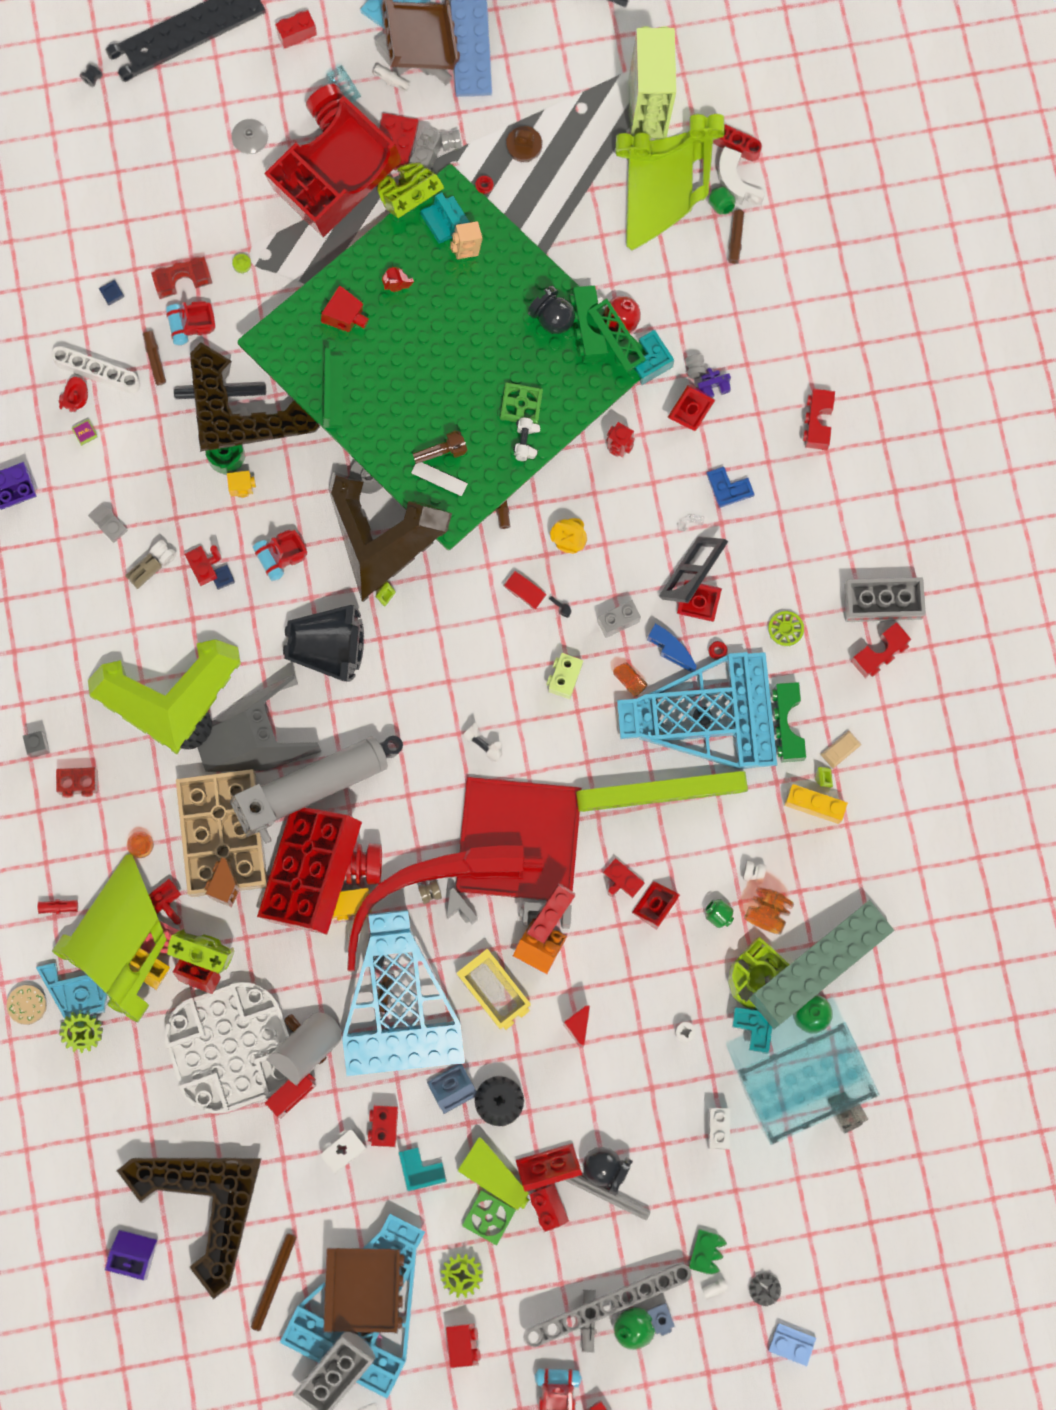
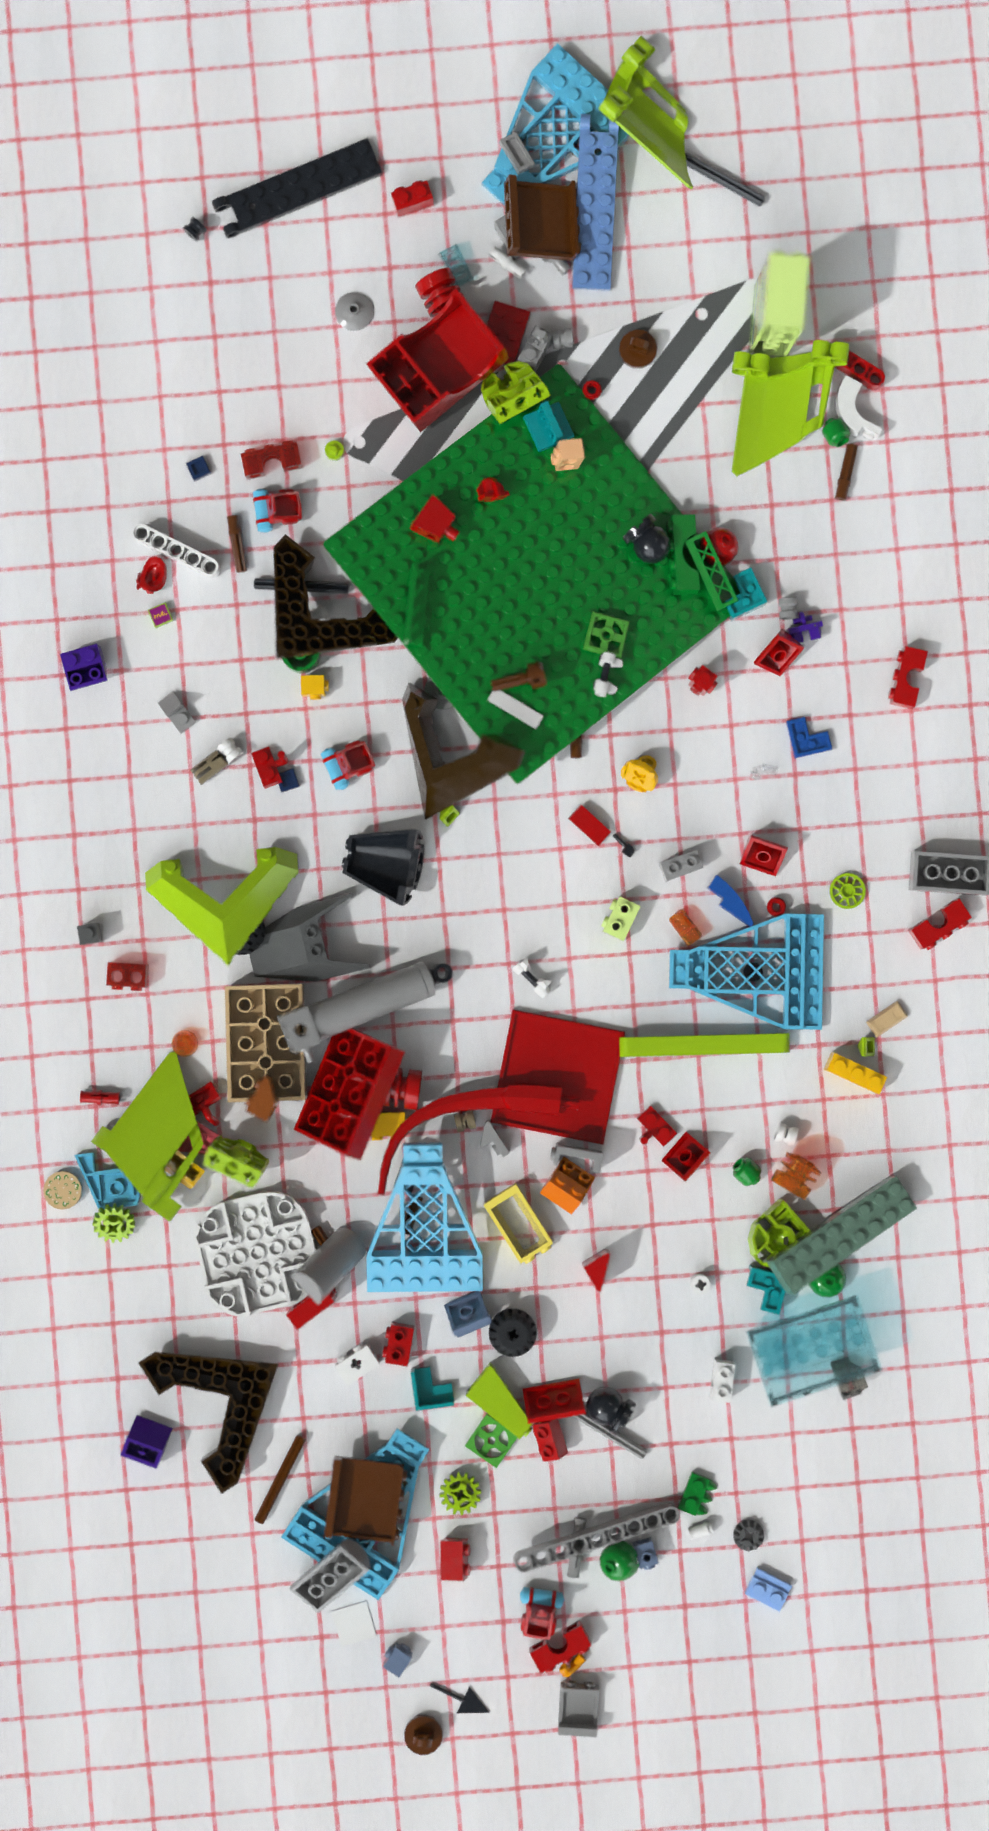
camera: 10 degrees right, 10 degrees up
(196, 976) = (229, 1184): red brick -> none
(551, 913) = (582, 1160): plate -> none
(687, 591) = (752, 848): black window -> none
(791, 746) = (837, 1012): green arch -> none

